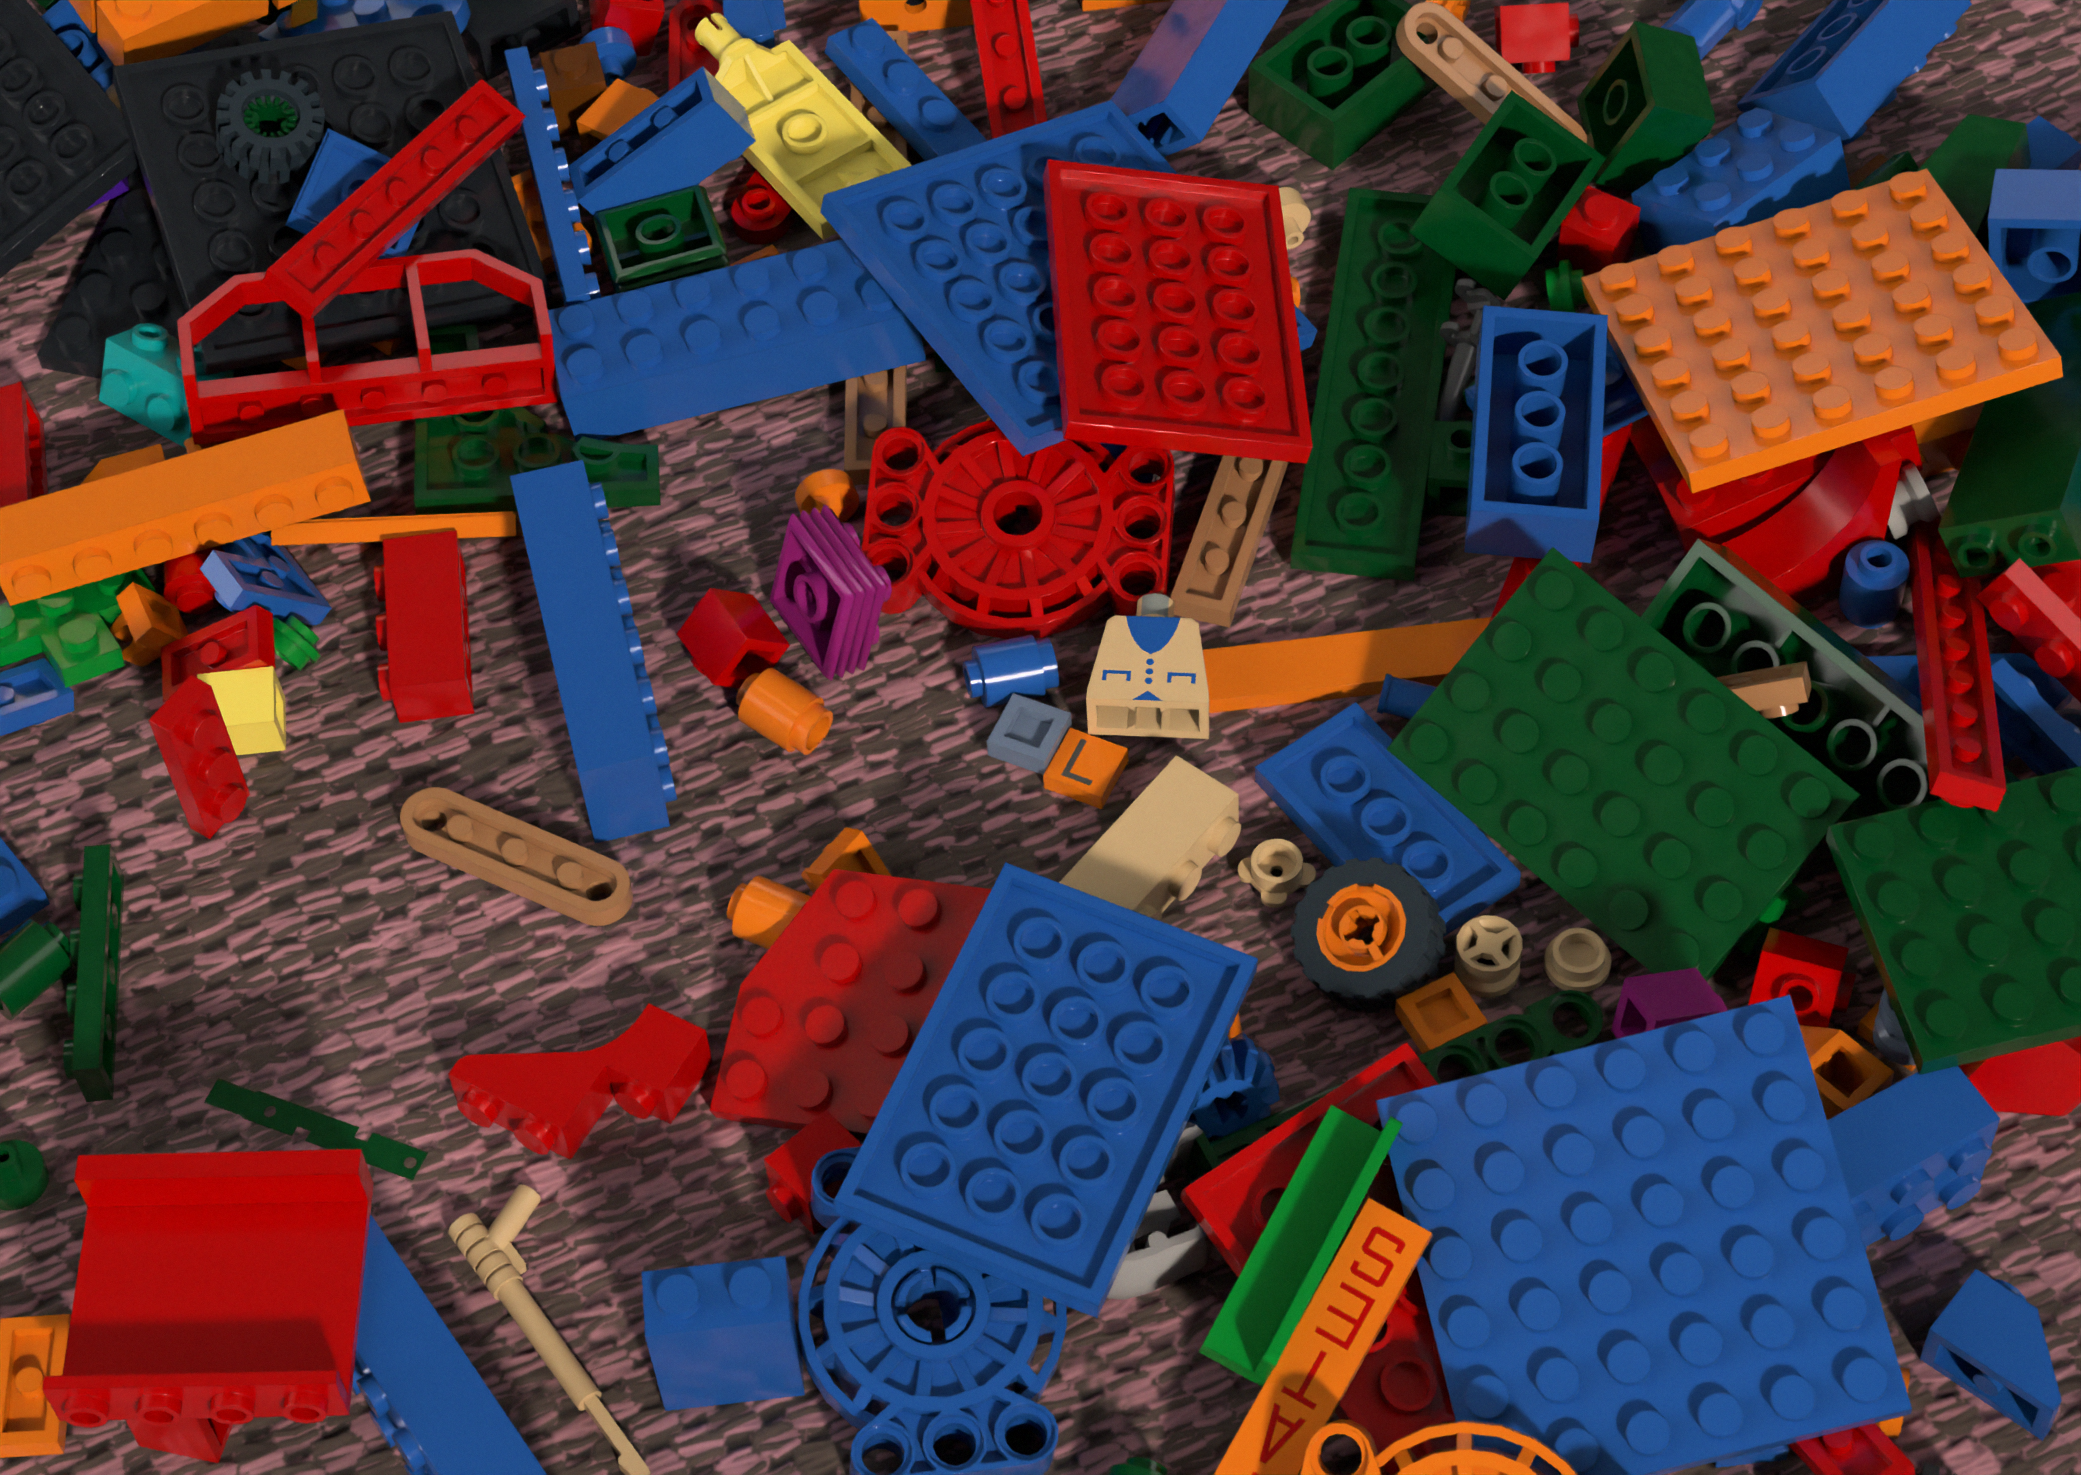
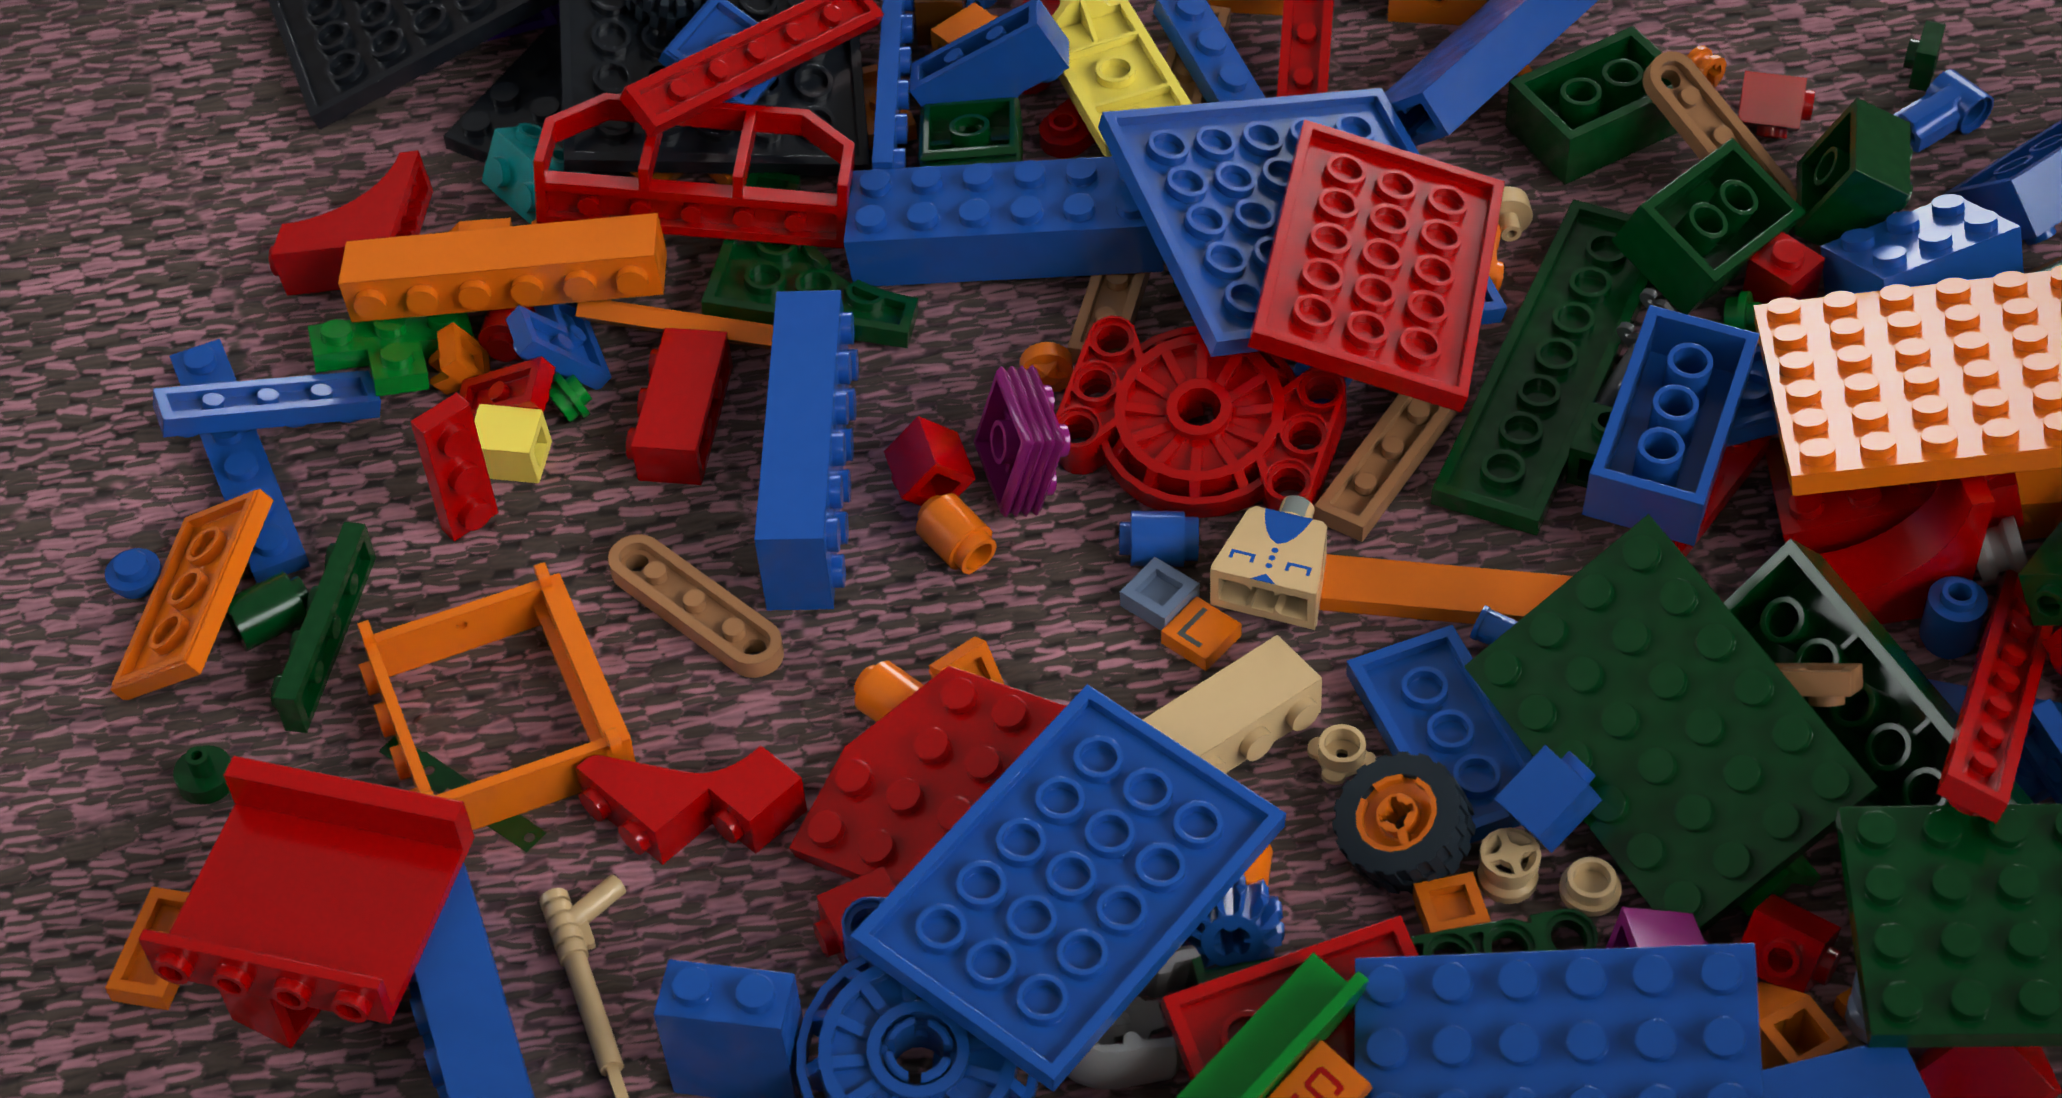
camera: 15 degrees right, 5 degrees down
(358, 895) = (477, 624): none -> orange window
(1519, 874) = (1550, 796): none -> blue brick

